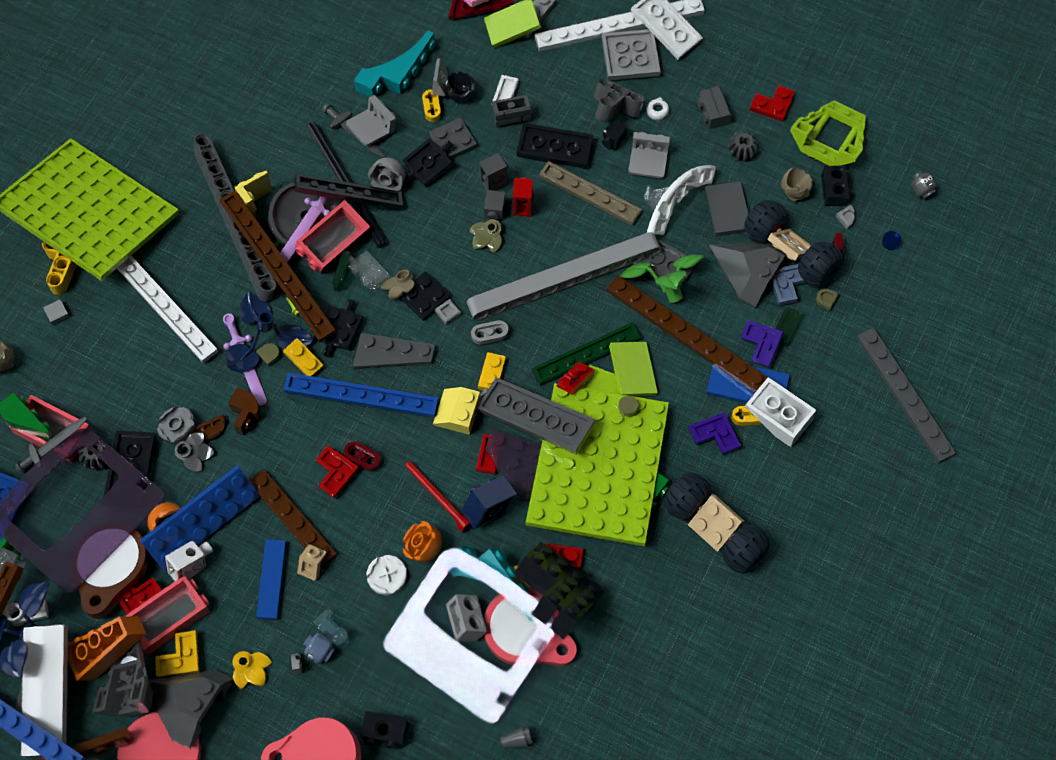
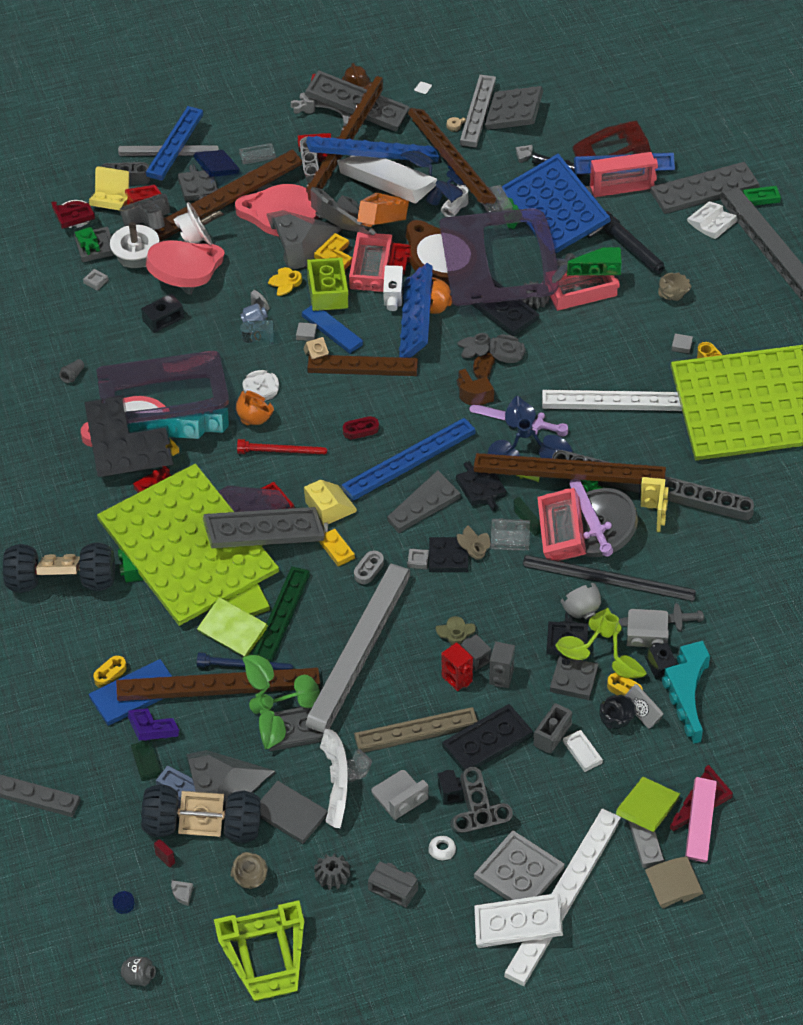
camera: 135 degrees right, 15 degrees down
(230, 617) = (327, 284): none -> lime brick
(269, 353) = (507, 433): olive tile -> none
(294, 595) = (306, 331): none -> light grey tile
(302, 358) = (483, 444): yellow plate -> none
(339, 468) = (363, 407): red plate -> none
(348, 191) = (586, 552): black plate -> none
(392, 95) = (659, 658): none -> black brick
(415, 113) = (607, 625): none -> lime plant
(466, 618) = (176, 391): light grey brick -> none
(488, 501) = (235, 455): dark blue brick -> none
(575, 378) = (265, 580): red plate -> none
(628, 406) = (203, 587): olive tile -> none
(677, 363) = (205, 659): none -> dark blue piece
(718, 429) = (125, 640): dark purple plate -> none
(773, 108) = (342, 939): red plate -> none
(780, 411) = (84, 680): white slope -> none
(826, 298) = (133, 808): olive tile -> none
(832, 186) = (219, 901): black brick -> none

